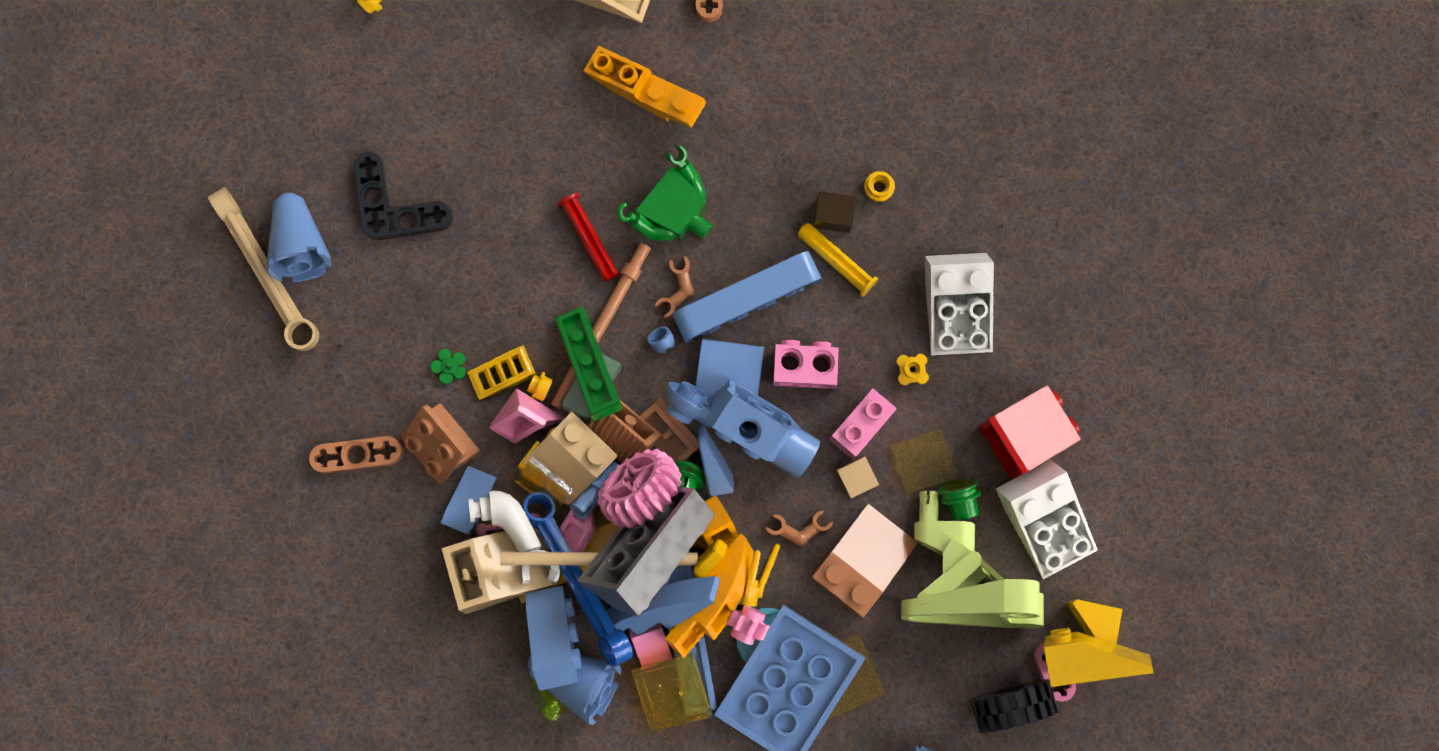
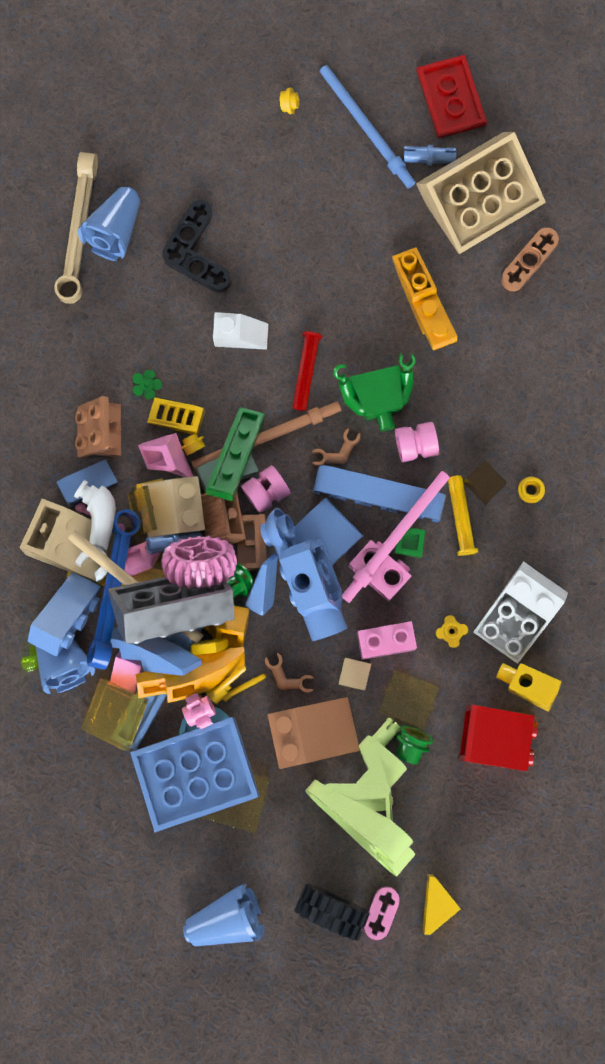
camera: 45 degrees right, 0 degrees up
(332, 449) = (28, 379): nougat beam -> none
(498, 248) = (239, 331): none -> white slope
(638, 385) = (256, 492): none -> bright pink wheel
(661, 339) = (298, 476): medium blue hinge -> none
(746, 219) = (418, 441): none -> bright pink wheel
(797, 383) = (363, 576): none -> bright pink bar
(811, 318) = (411, 543): none -> green tile
(1036, 357) = (541, 691): none -> yellow torso
(1047, 518) = (461, 806): white slope -> none
(1084, 658) = (407, 921): yellow slope -> none

